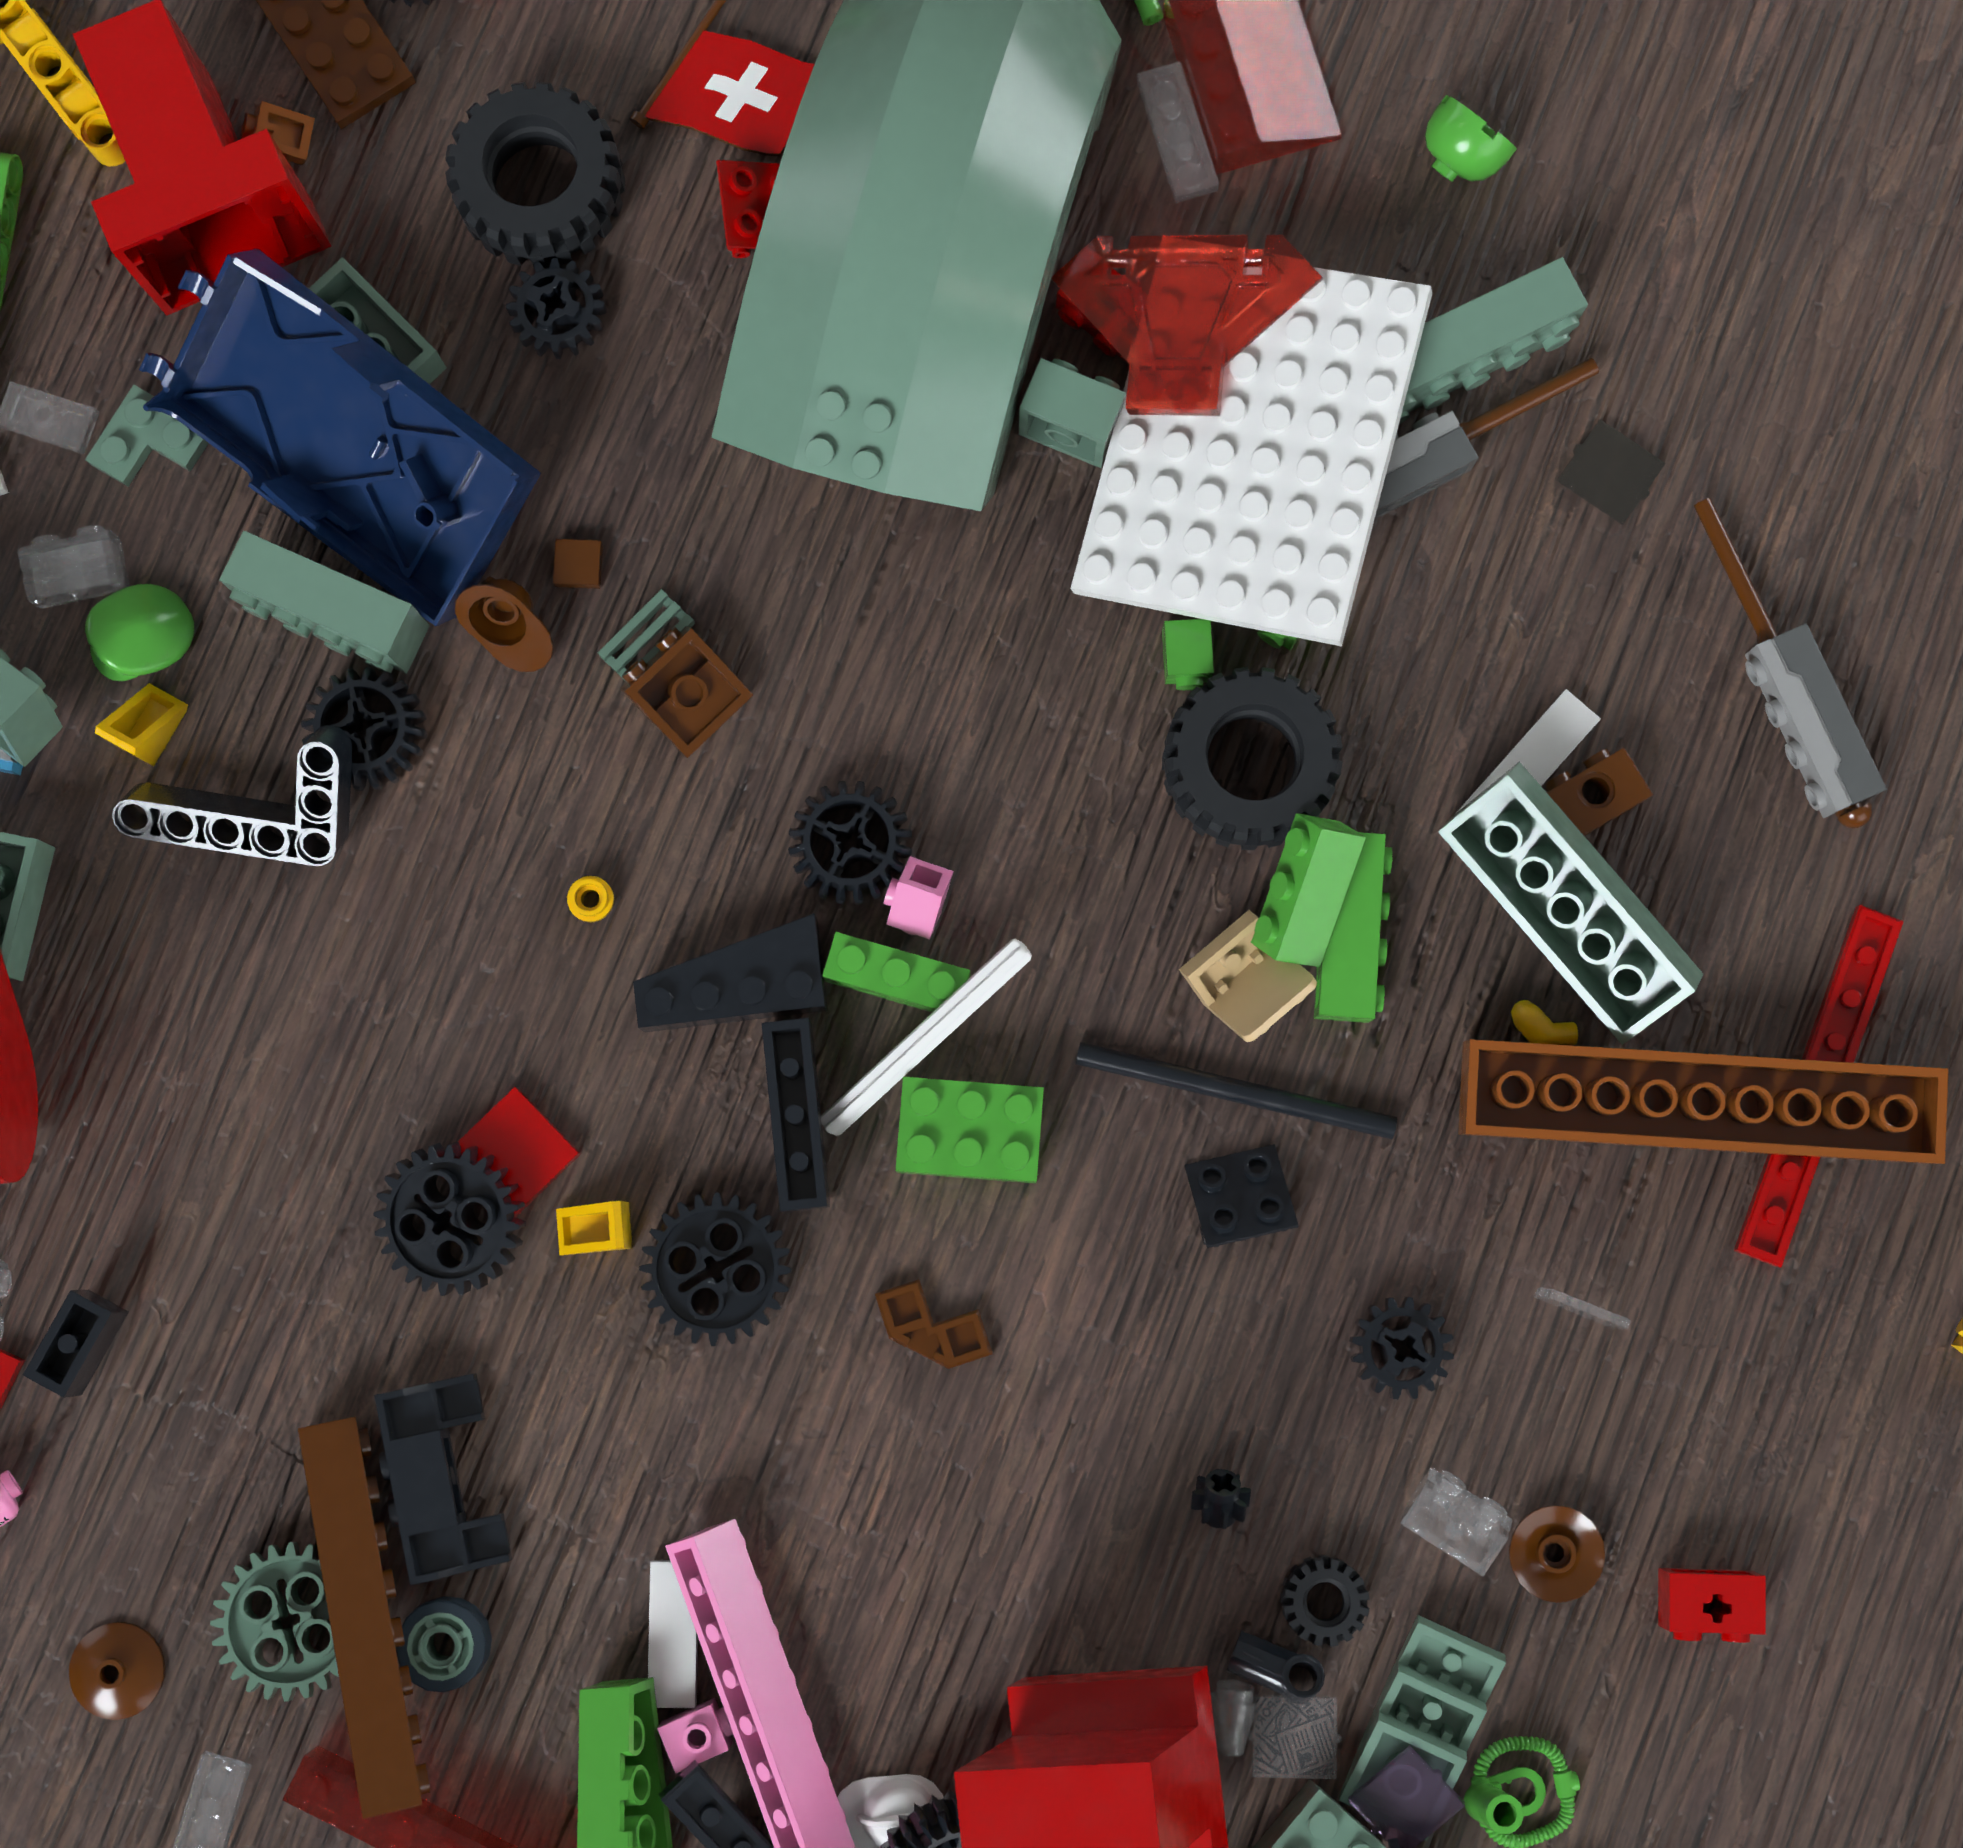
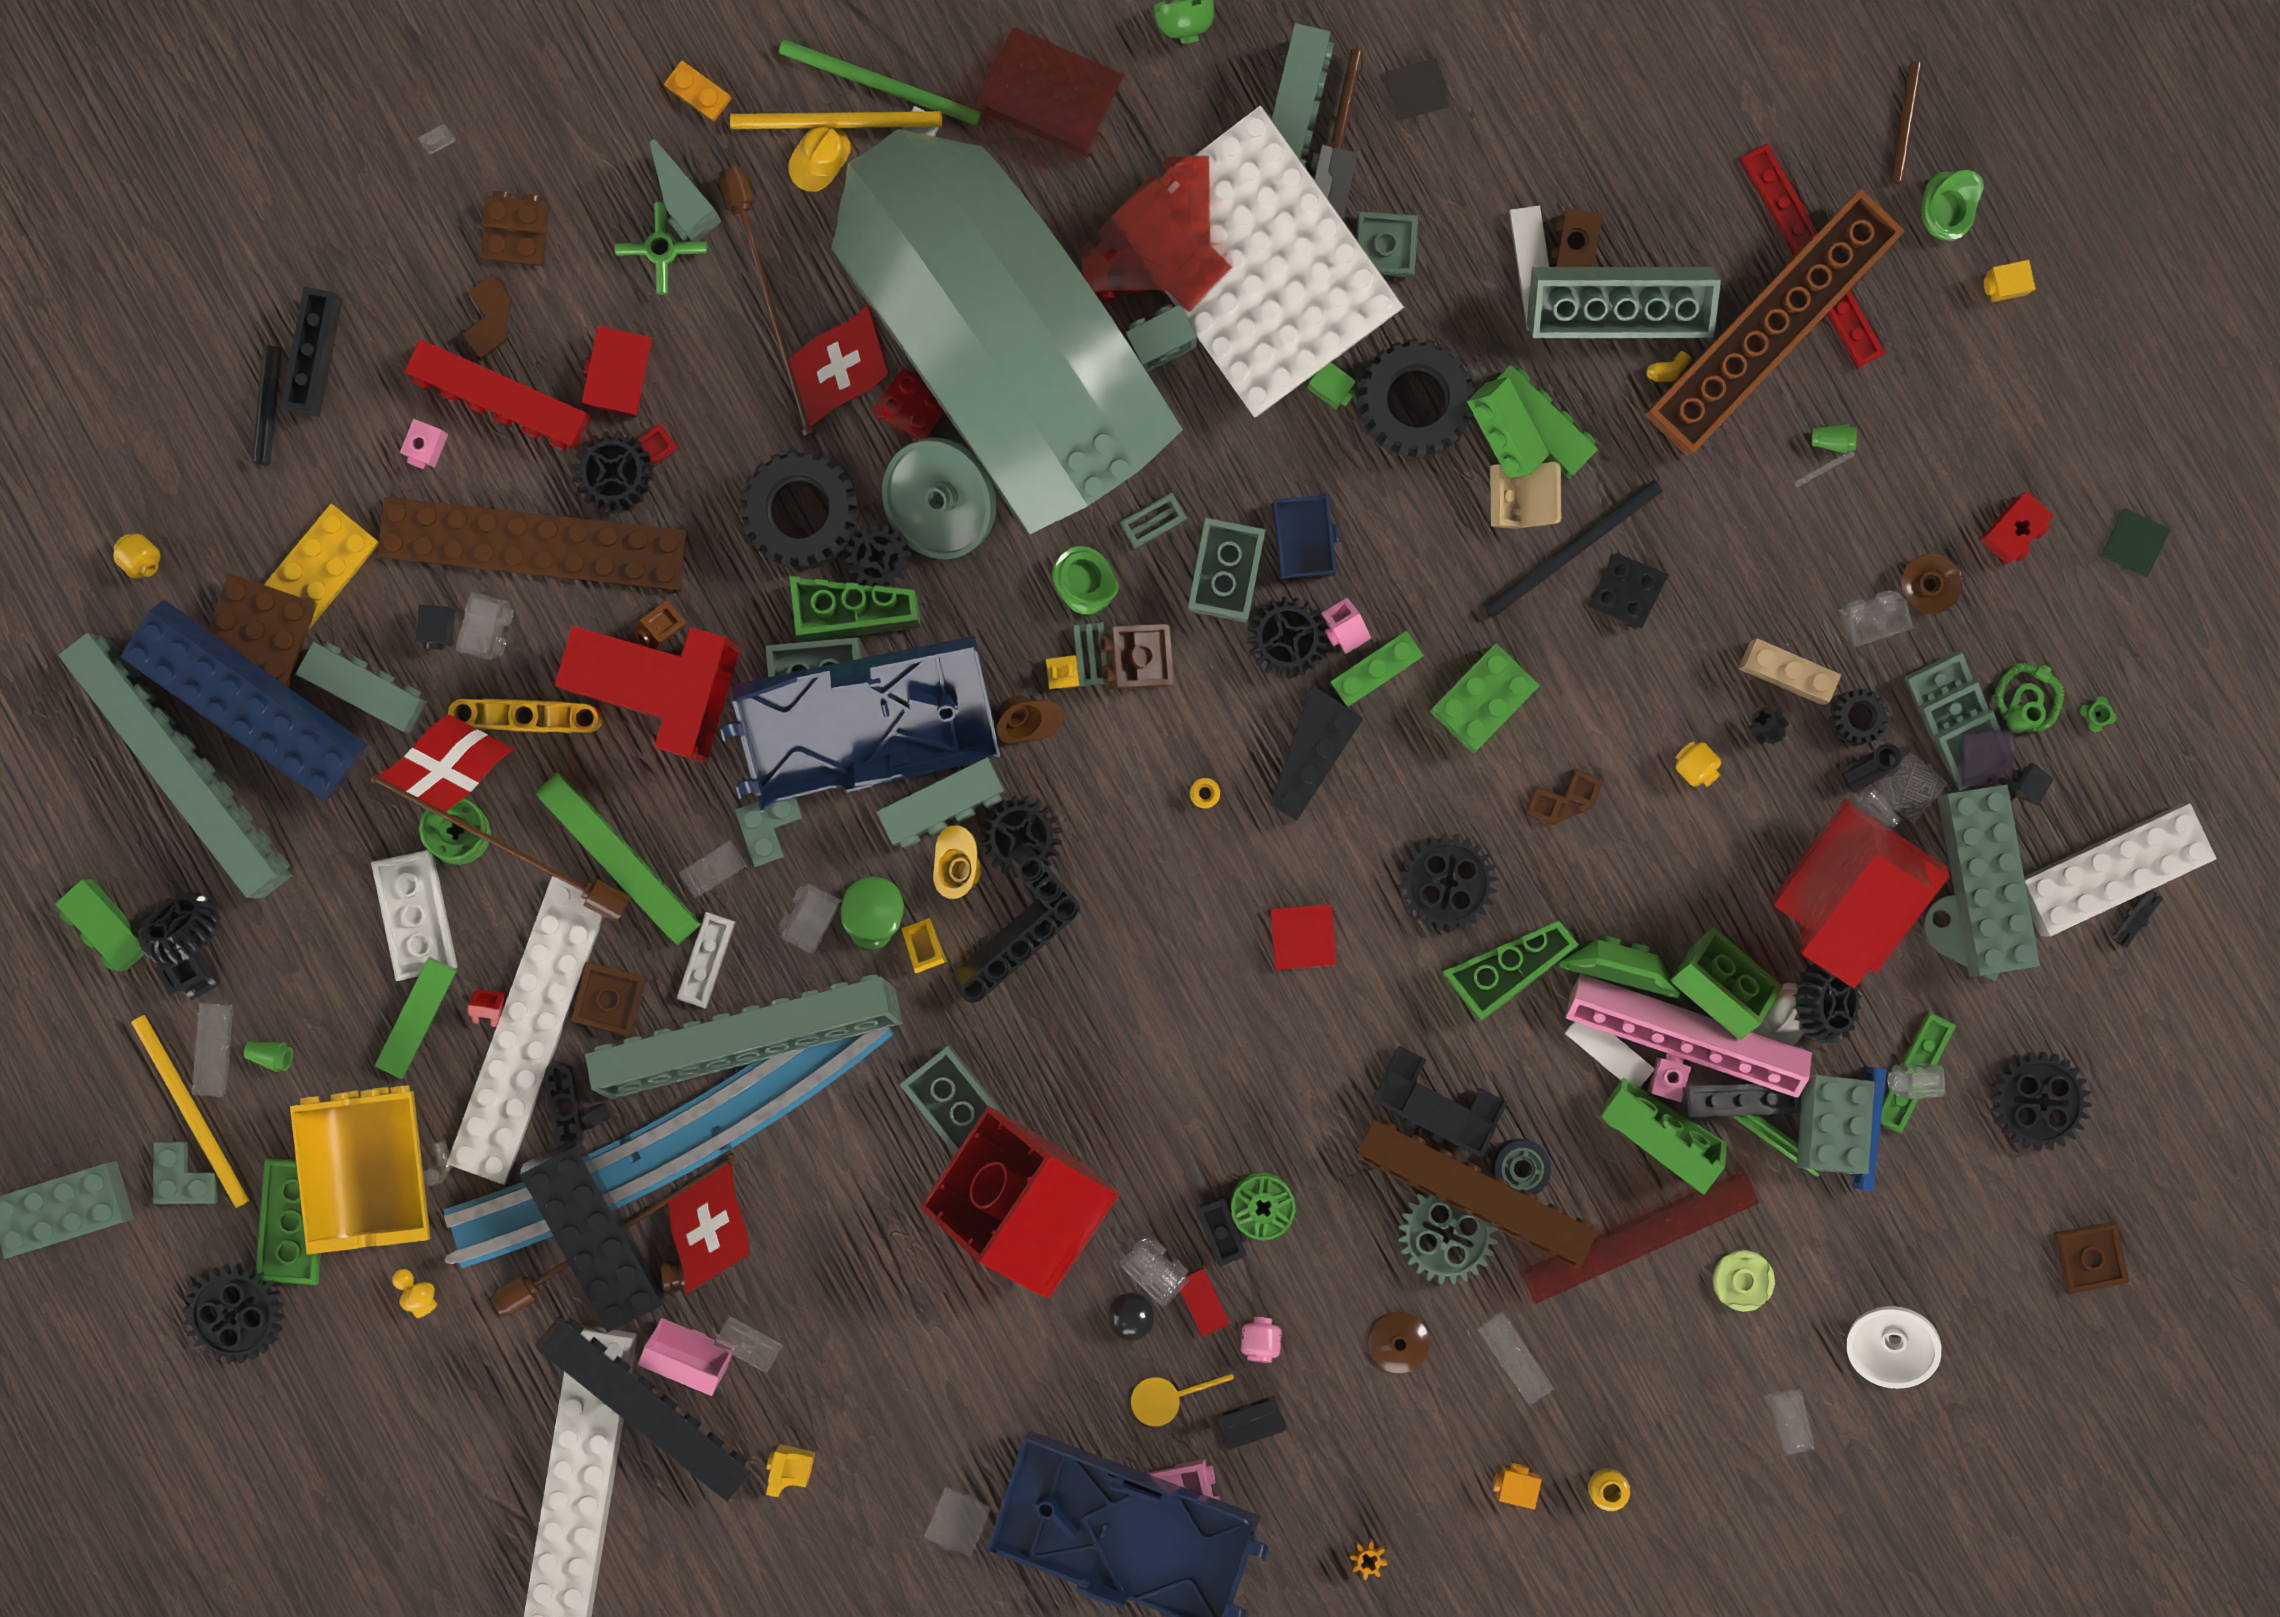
camera: 55 degrees left, 5 degrees up
(171, 1362) = (1262, 1187): none -> bright green wheel
(270, 680) = (955, 862): none -> yellow piece
(430, 1253) = (1305, 968): black gear -> none
(464, 319) = (847, 610): none -> bright green wedge
(578, 563) = (1022, 657): reddish brown tile -> none
(594, 1228) = (1375, 927): yellow slope -> none
(596, 621) = (1062, 672): none -> yellow tile
(655, 1424) = (1502, 973): none -> bright green wedge
(674, 313) = (939, 498): none -> sand green dish
(723, 557) = (1084, 580): none -> bright green piece
(785, 1560) = (1621, 965): none -> bright green wedge
(795, 1115) = (1405, 778): black brick -> none
(864, 1709) = (1726, 983): none -> bright green brick
(868, 706) = (1226, 570): none -> sand green brick
(896, 595) = (1155, 533): none -> sand green tile
(926, 1037) = (1422, 680): white axle -> none
(985, 767) = (1305, 537): none -> dark blue container
(1104, 1452) = (1698, 764): none -> yellow head
(1177, 132) = (1052, 158): clear plate -> none
(1307, 1470) = (1789, 671): none -> tan brick
(1406, 581) = (1389, 241): none -> sand green plate
(1413, 1329) = (1772, 586): black gear -> none
(1630, 1291) = (1835, 438): none -> bright green cone
(1802, 699) = (1615, 96): piece -> none
(1819, 1764) = (2135, 542): none -> clear green piece

